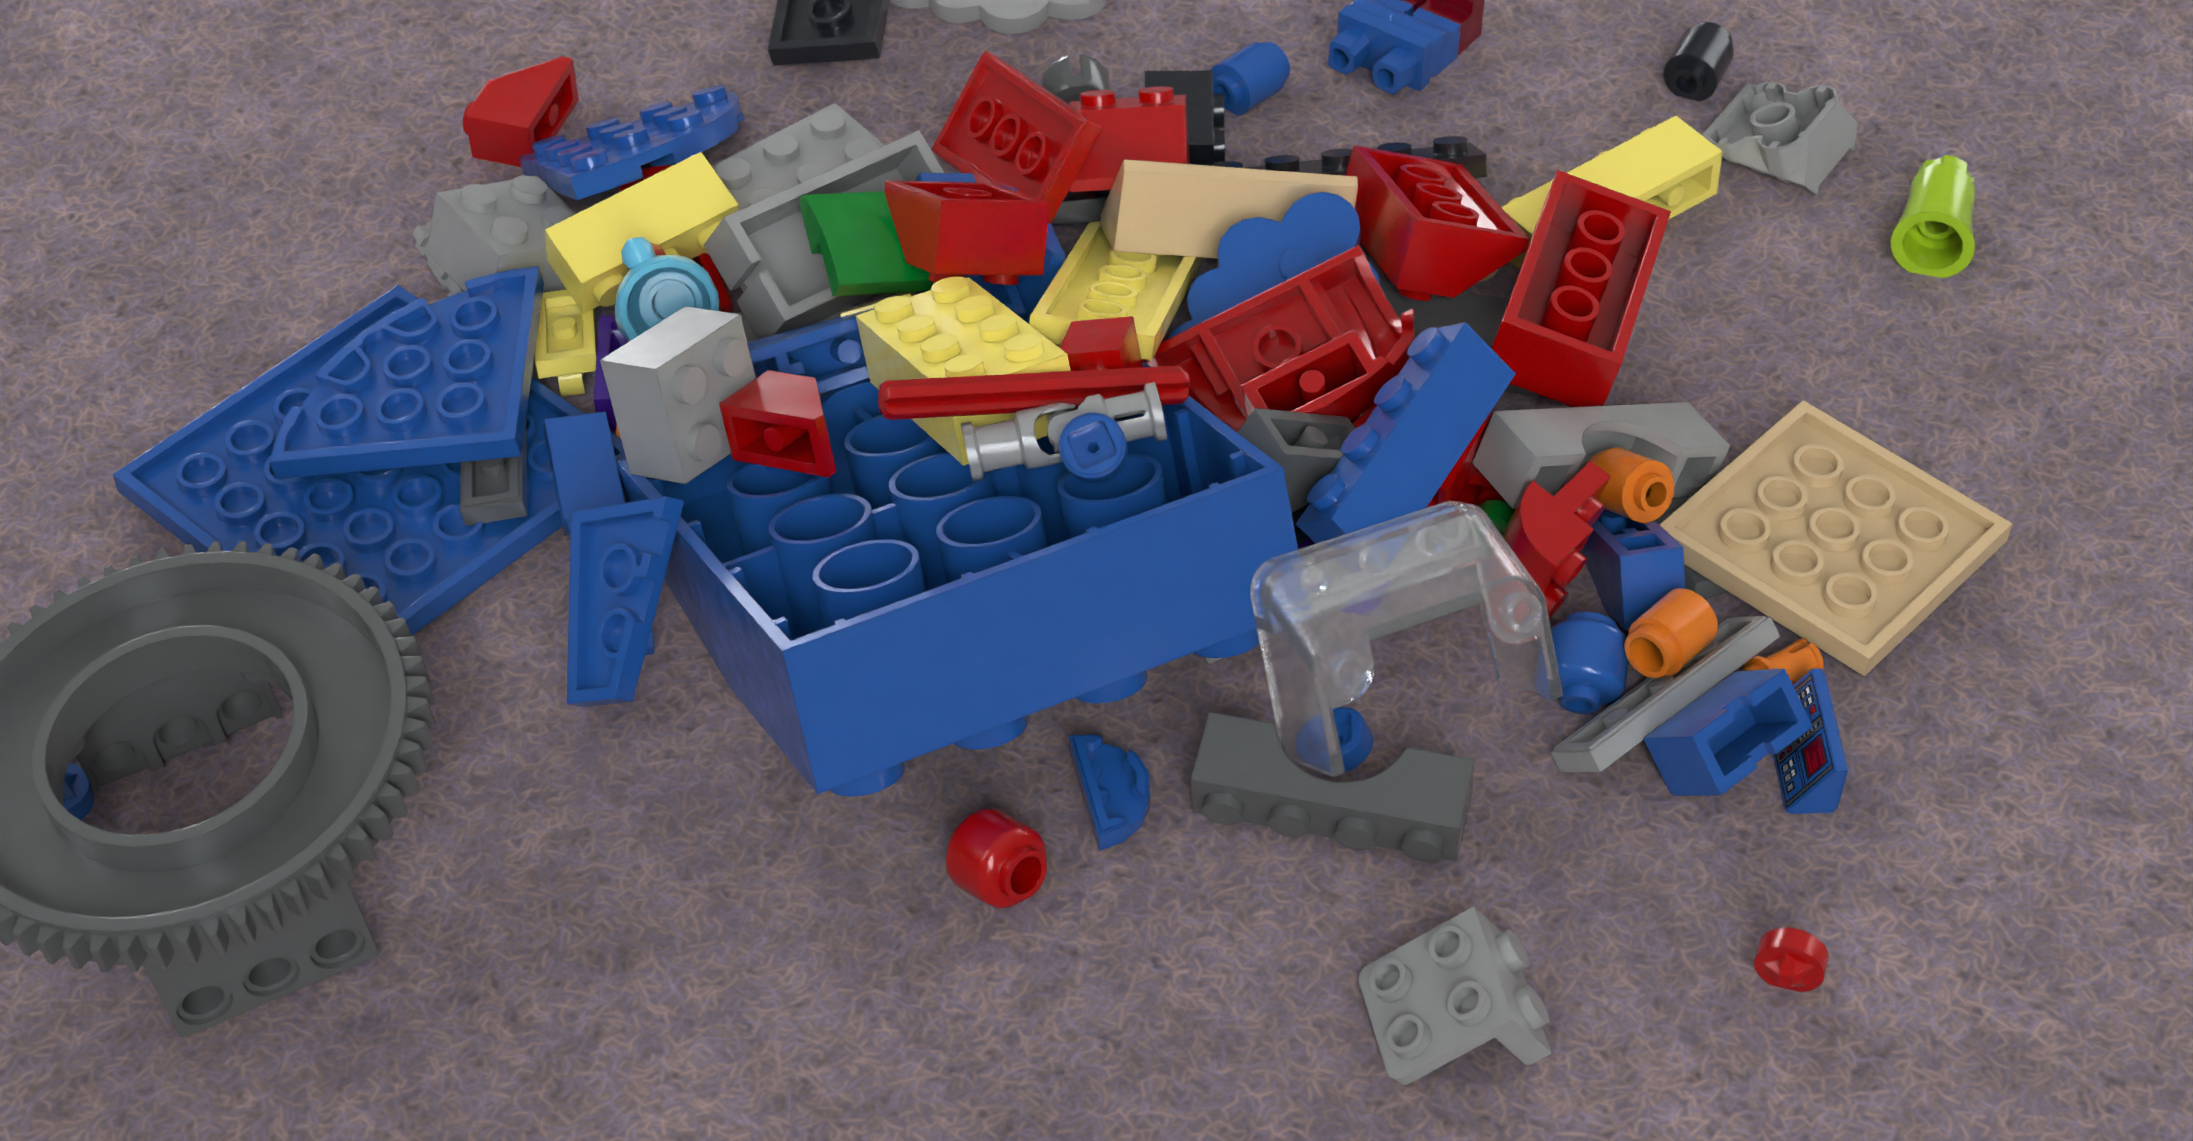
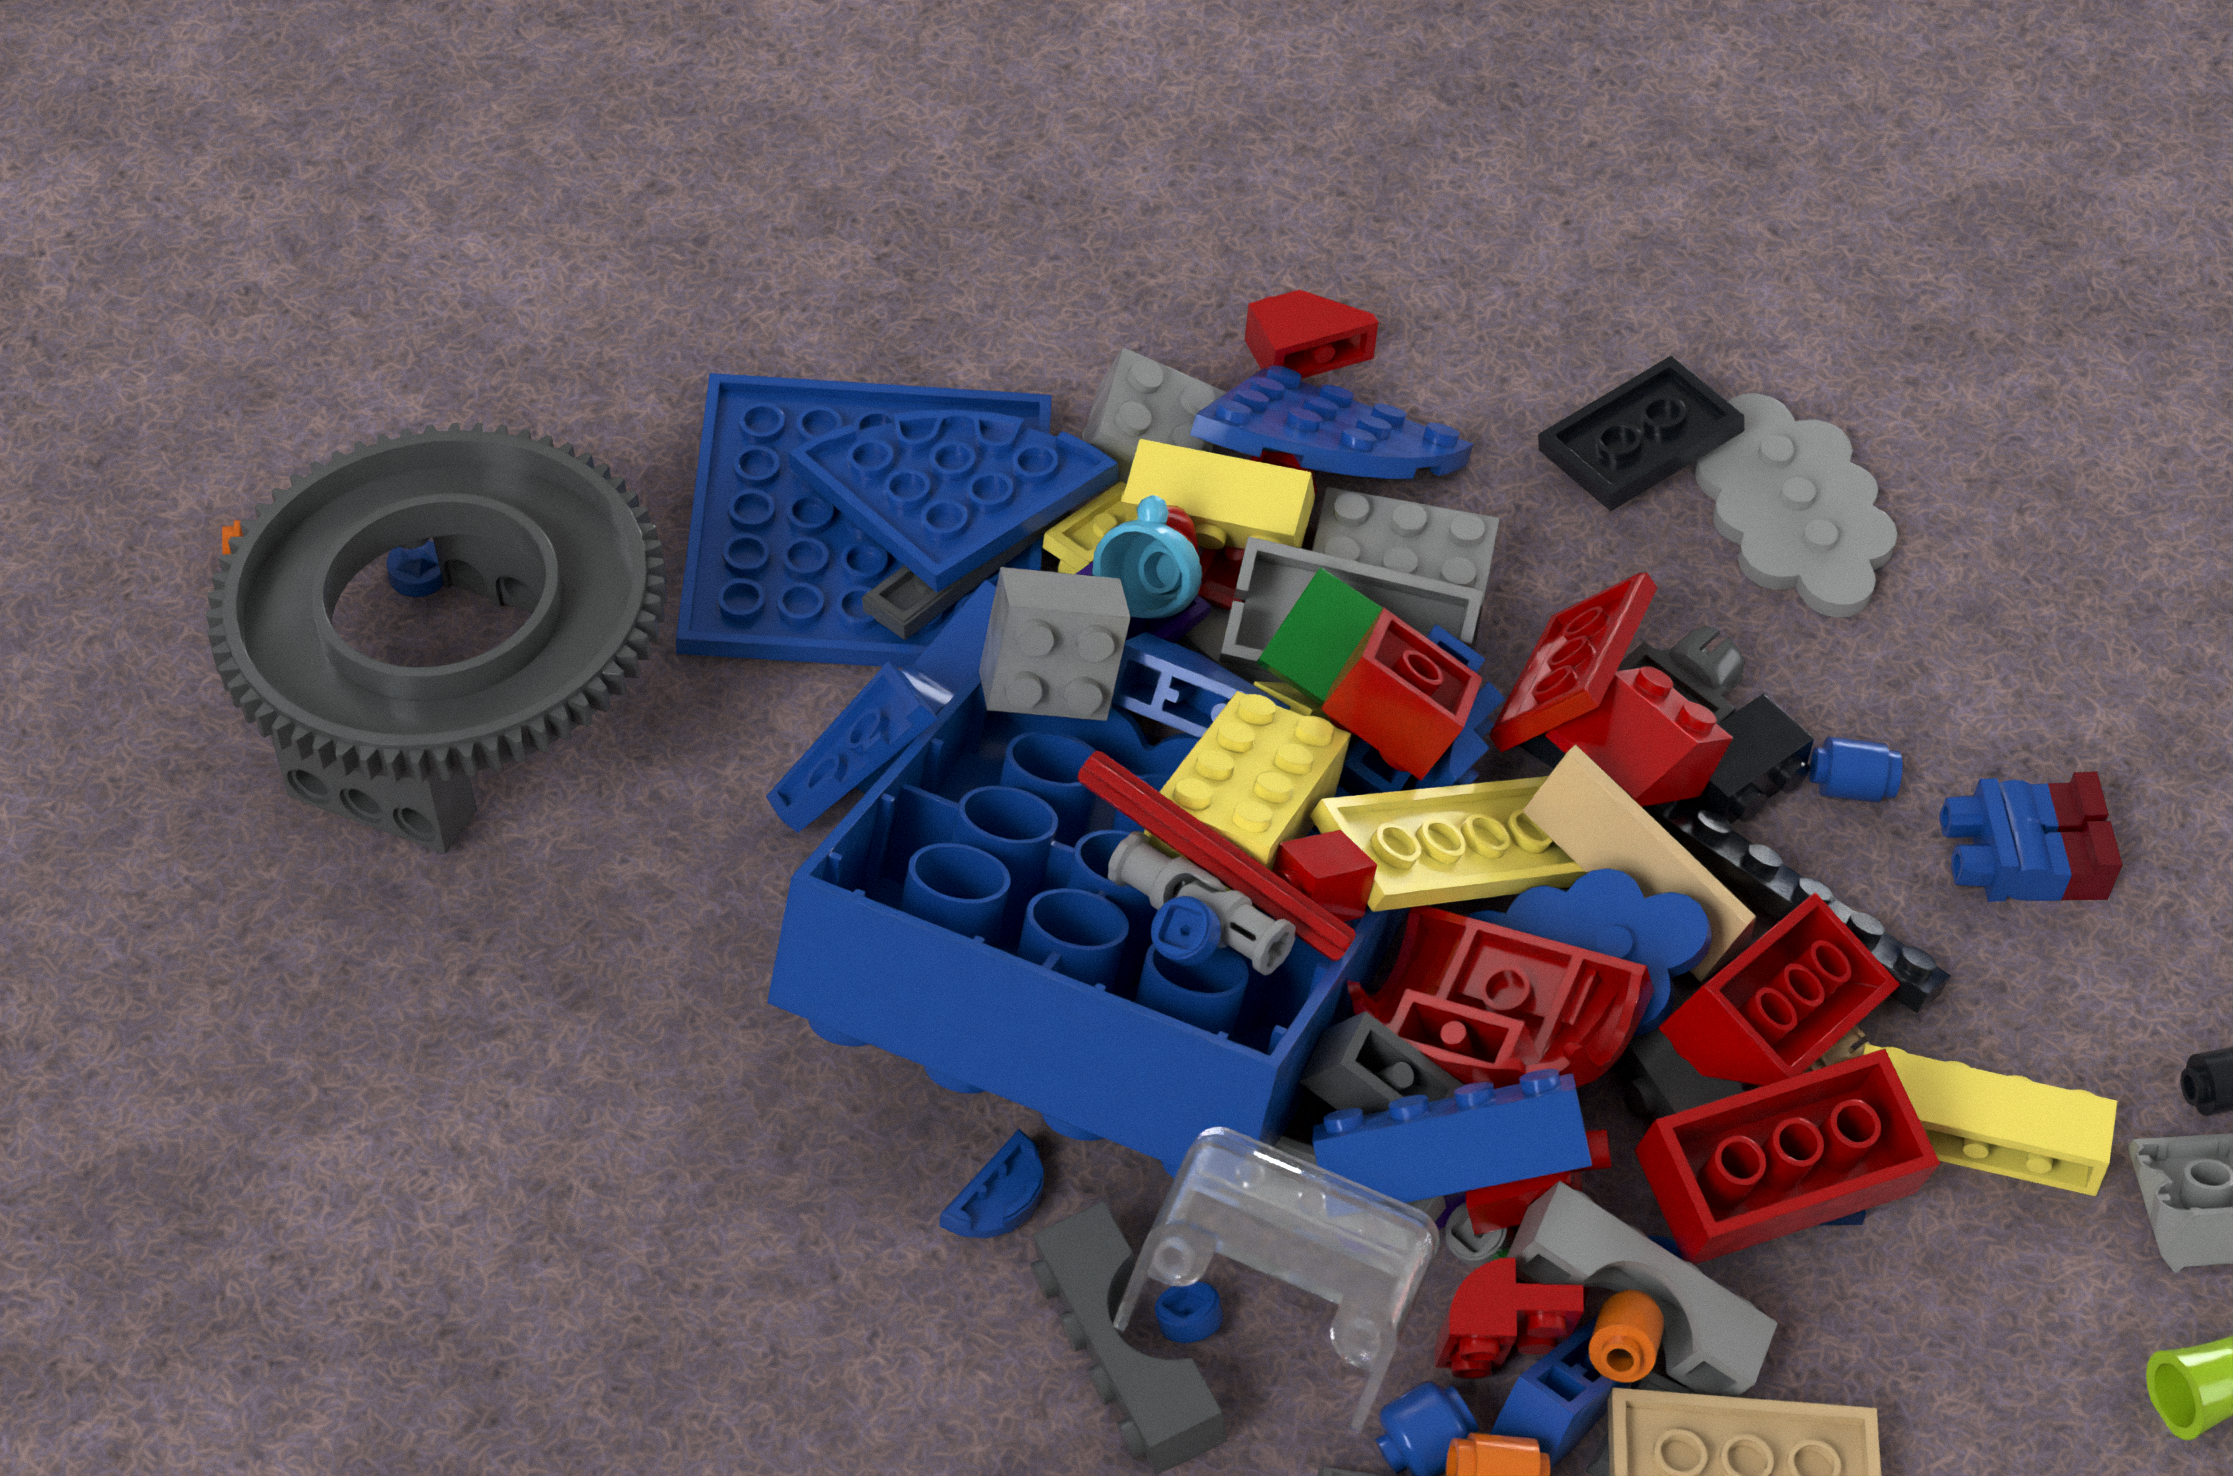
camera: 45 degrees right, 5 degrees up
(779, 424) = (1088, 716): red slope -> none
(996, 858) = (858, 1163): red head -> none

